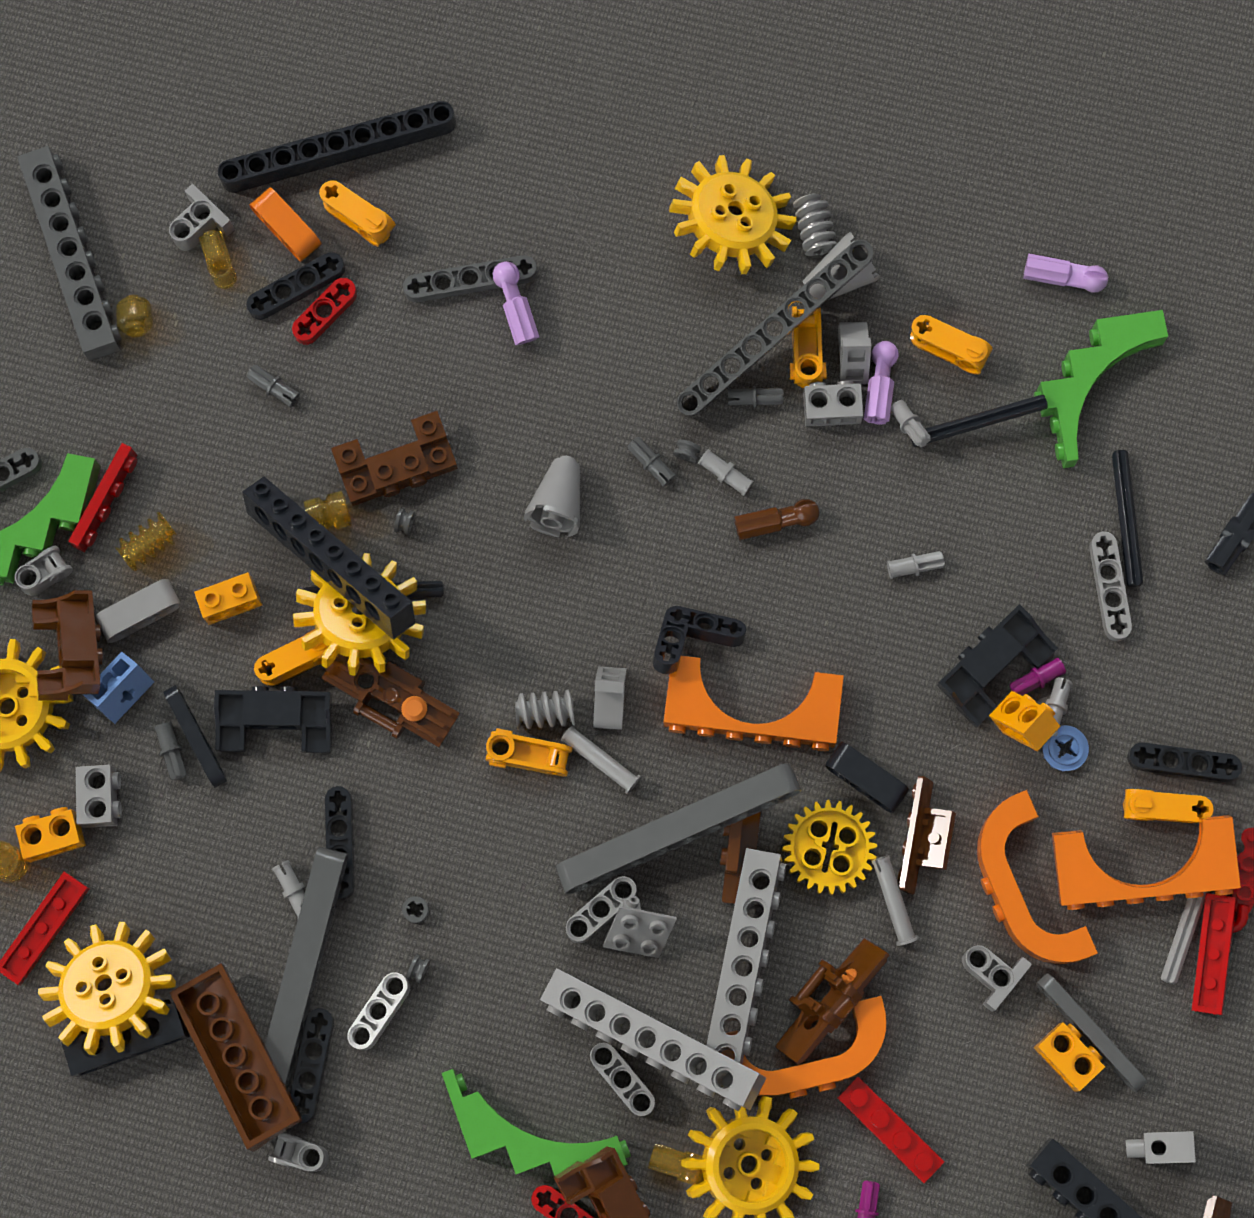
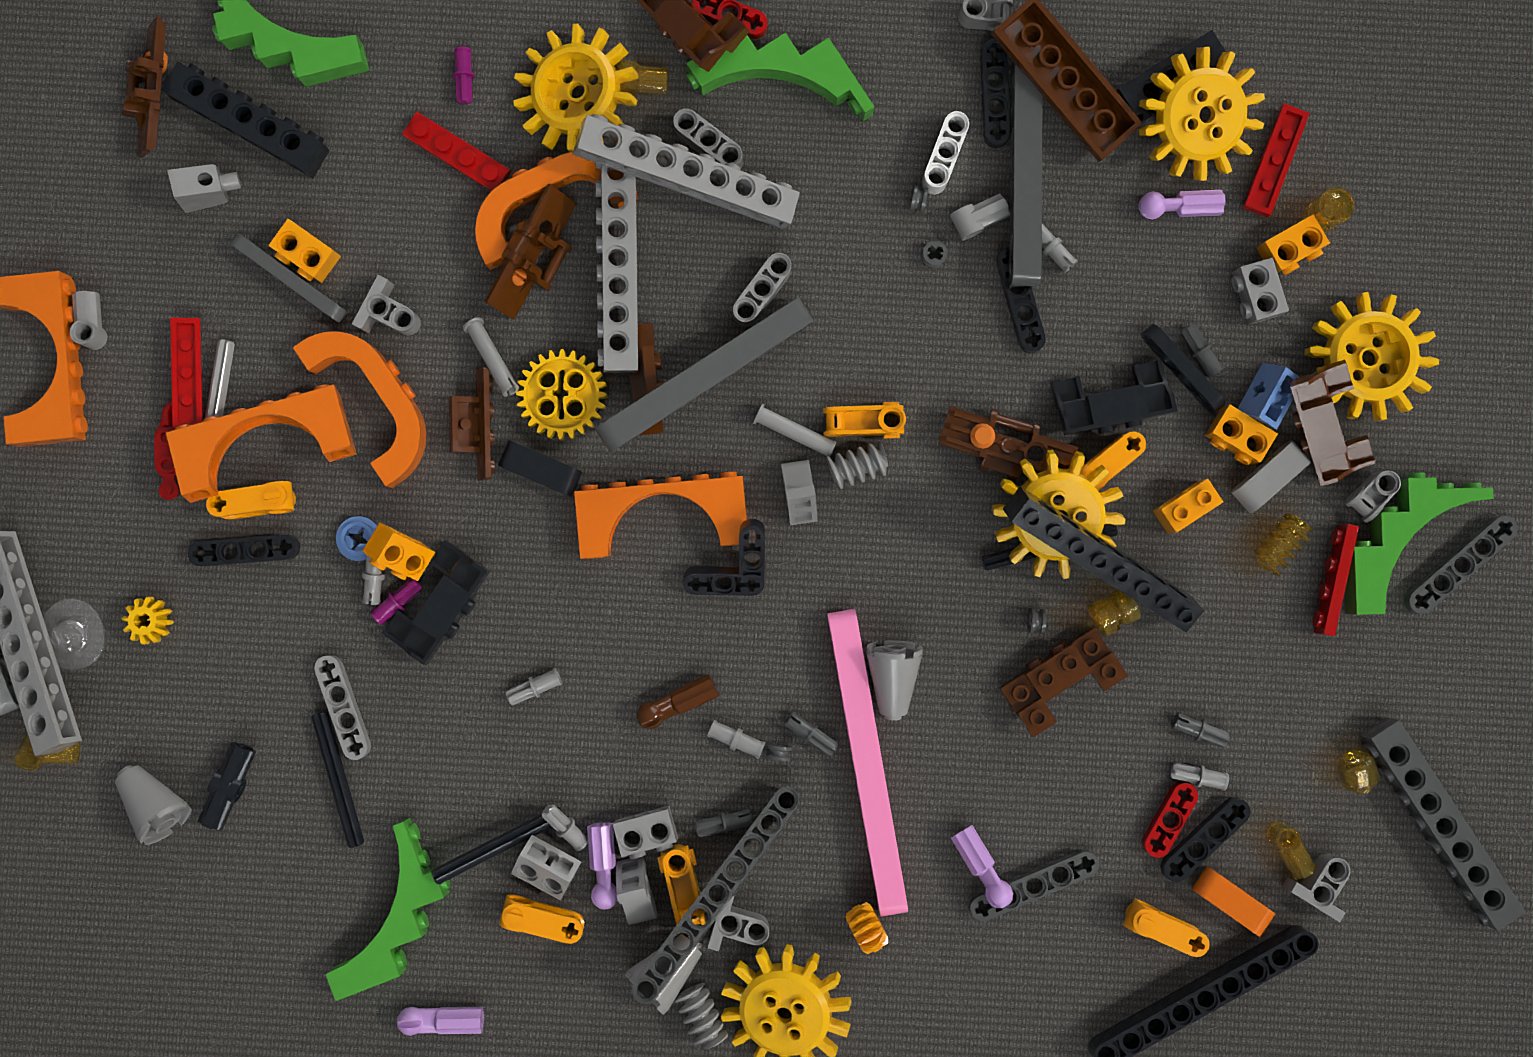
camera: 165 degrees right, 10 degrees up
(146, 903) = (1185, 204): none -> lavender piece
(152, 661) = (1242, 428): none -> light orange brick
(285, 344) = (1199, 776): none -> light grey axle
(365, 936) = (973, 219): none -> light grey piece
(602, 426) = (867, 762): none -> bright pink beam
(639, 271) = (866, 928): none -> light orange gear
(639, 930) = (723, 273): light grey hinge -> none
(760, 295) = (741, 929): none -> light grey tile
(936, 390) = (546, 867): none -> light grey brick

